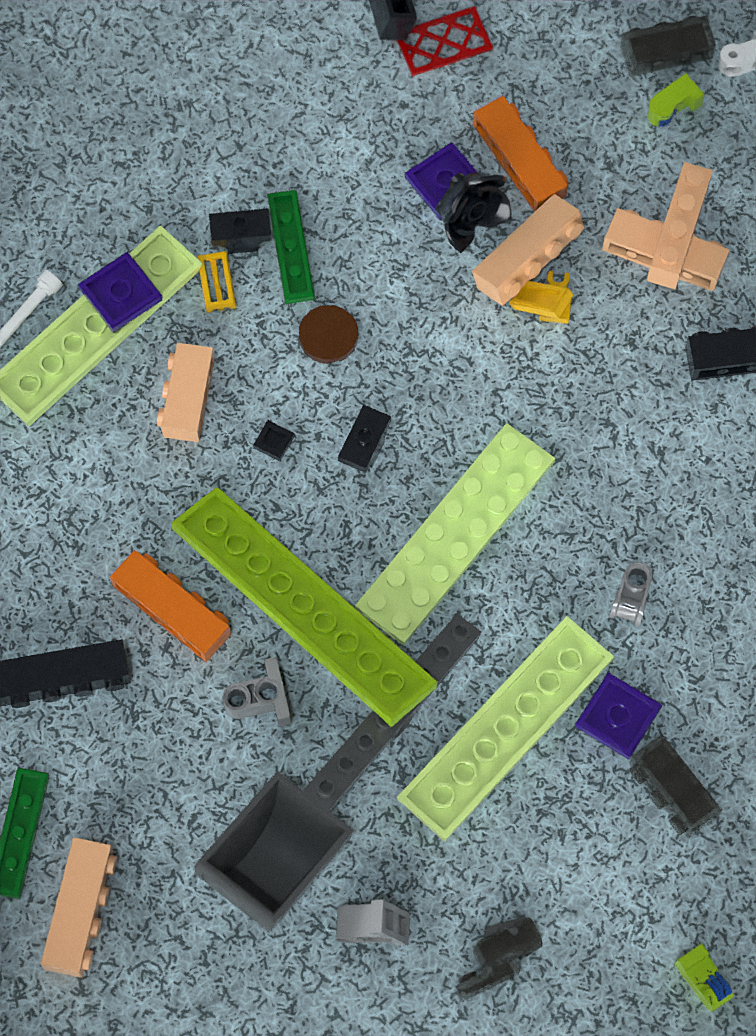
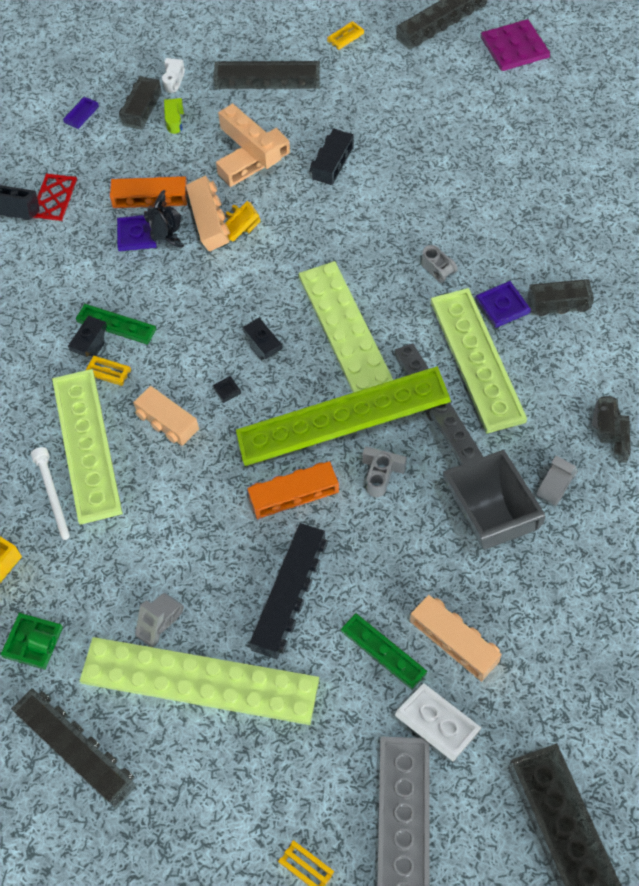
camera: 55 degrees left, 10 degrees down
(120, 292) = (78, 416): dark purple plate -> none
(328, 334) = (182, 331): reddish brown tile -> none

